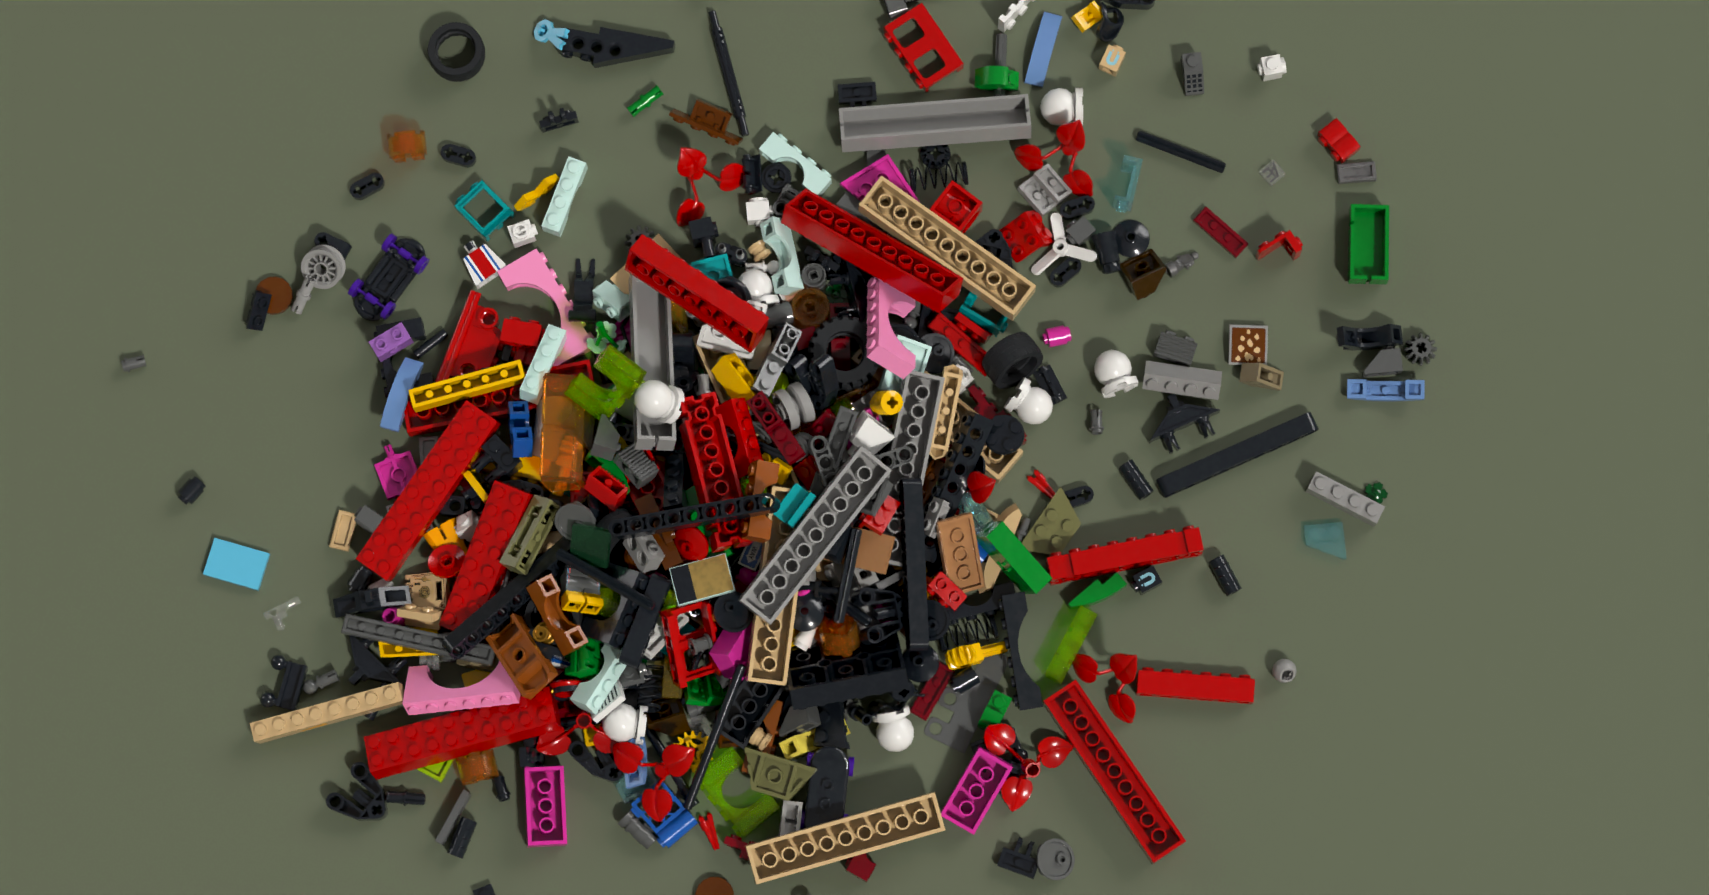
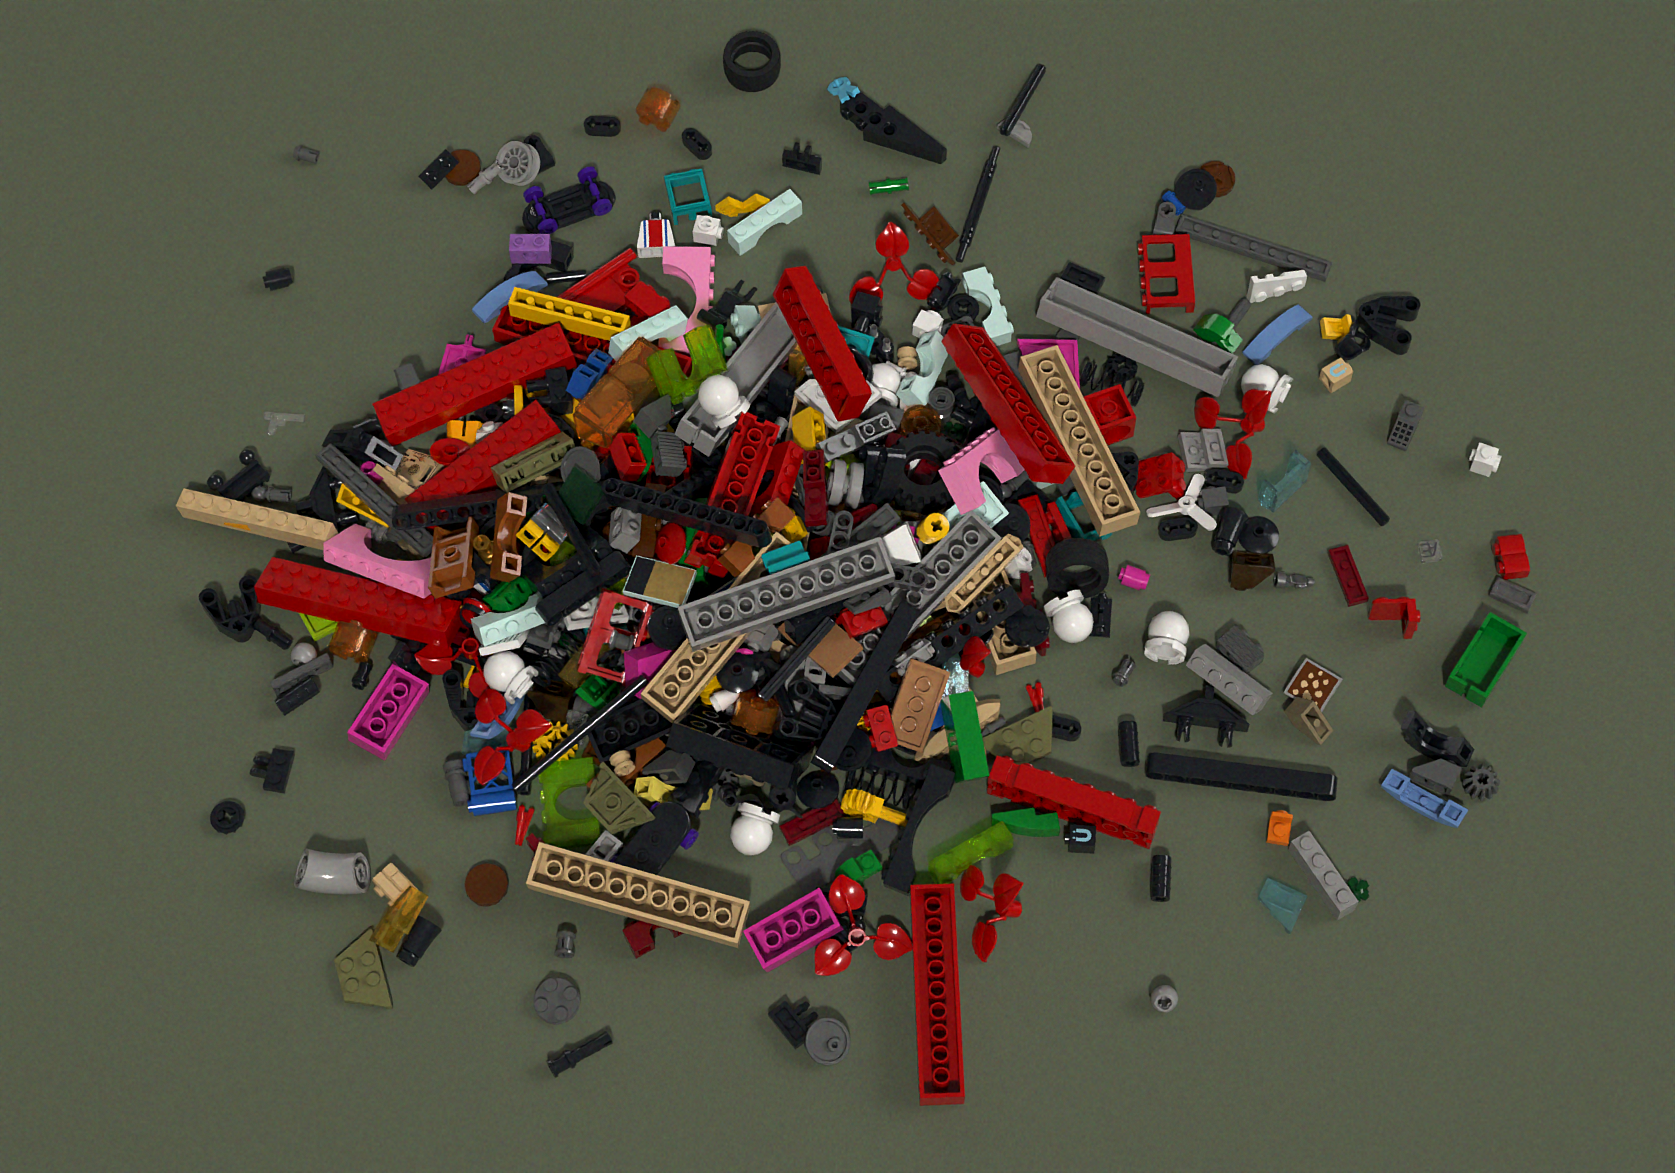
camera: 30 degrees right, 15 degrees down
(236, 564) = (272, 359): medium azure tile -> none
(343, 531) = (381, 385): tan tile -> none
(443, 800) = (303, 653): none -> light grey piece
(1195, 686) = (1067, 963): red brick -> none
(1289, 479) = (1279, 828): none -> orange bracket

